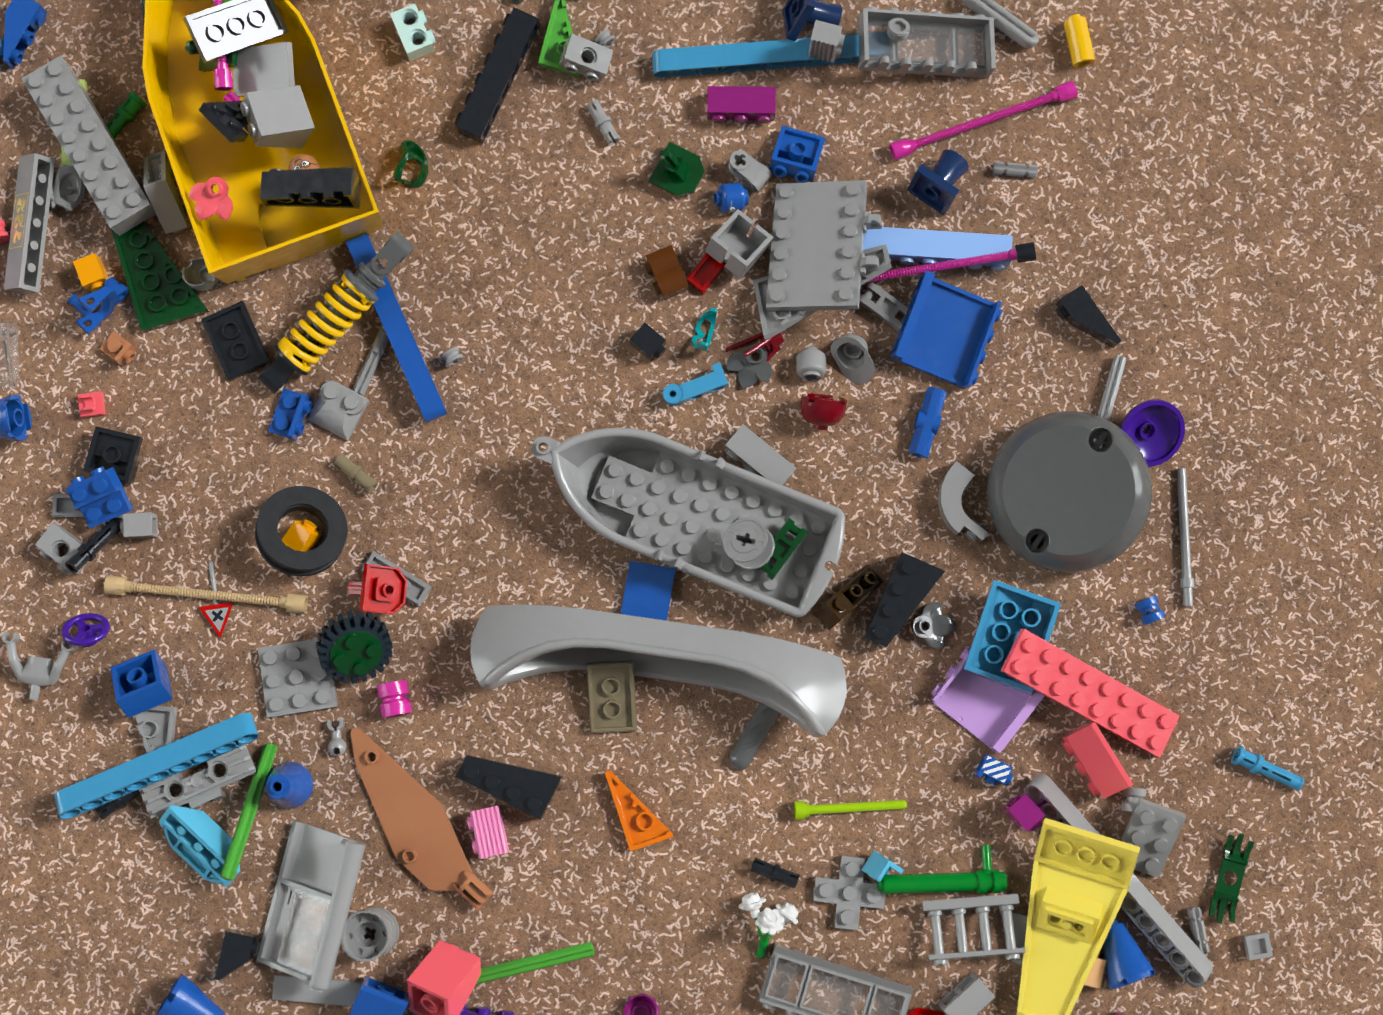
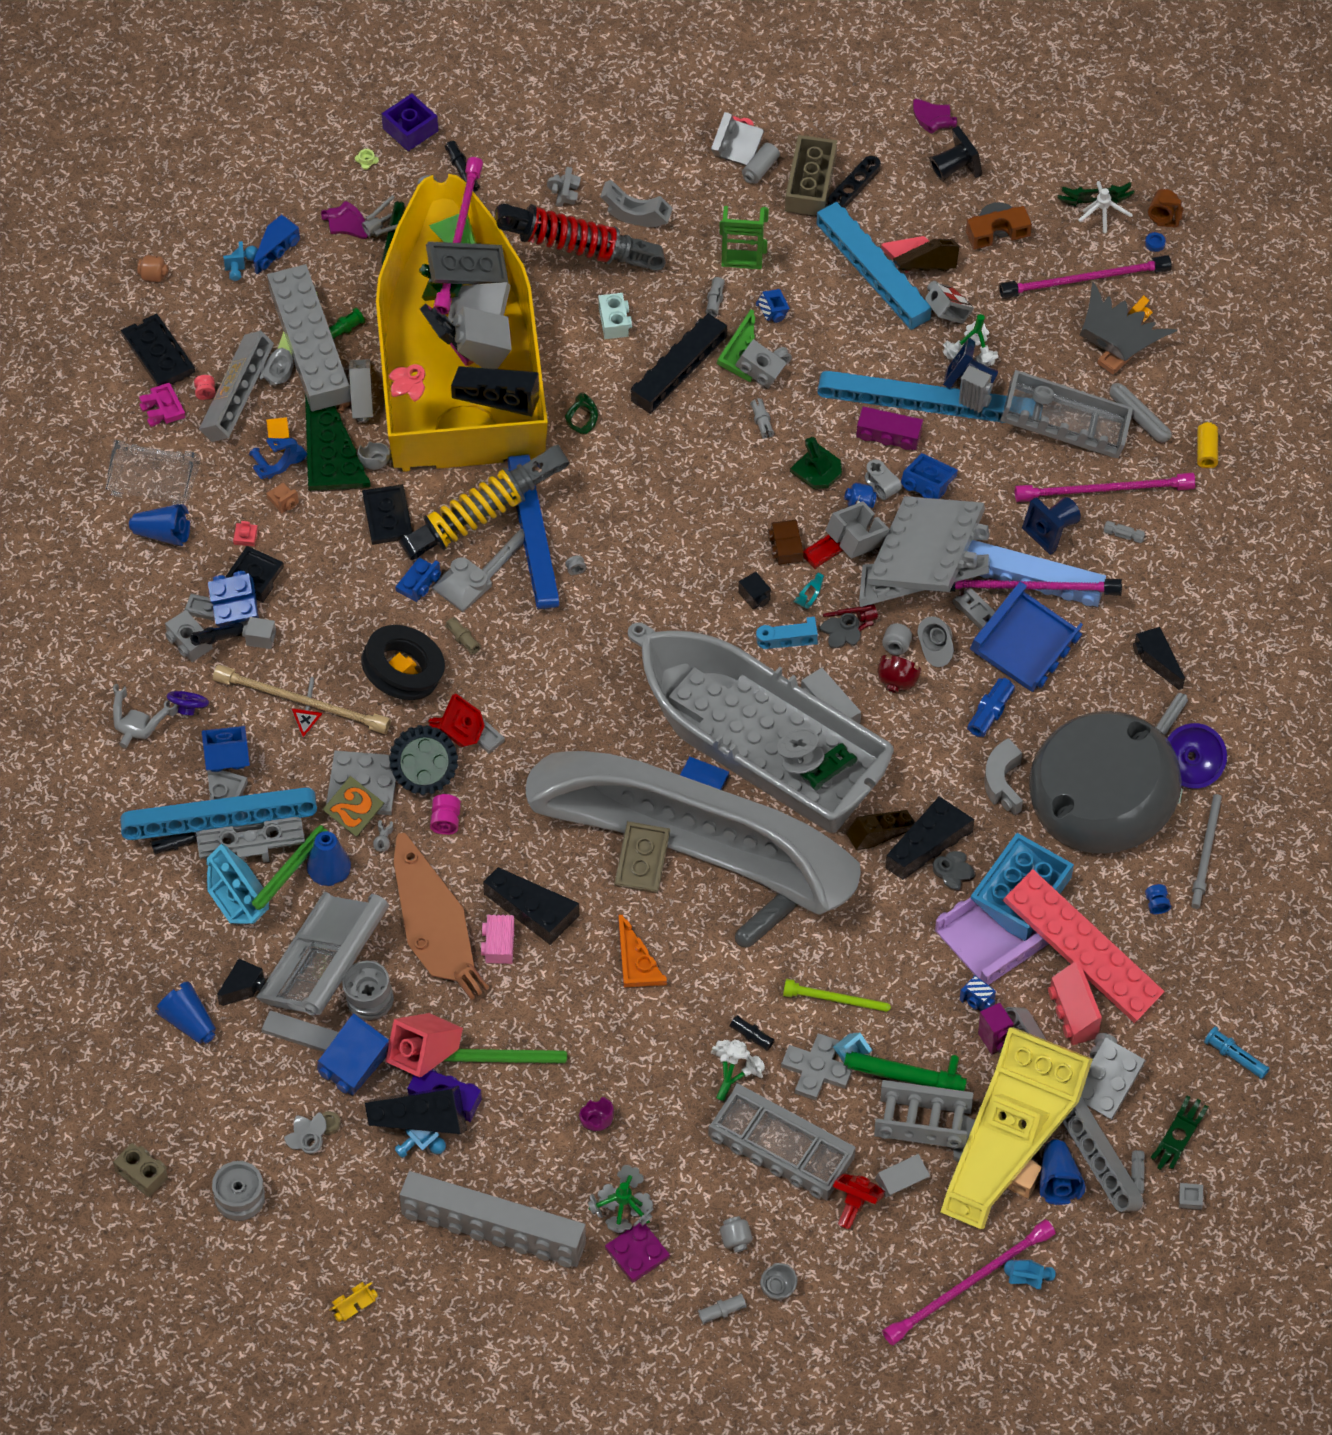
camera: 15 degrees right, 25 degrees down
(296, 715) = (353, 806): none -> tile

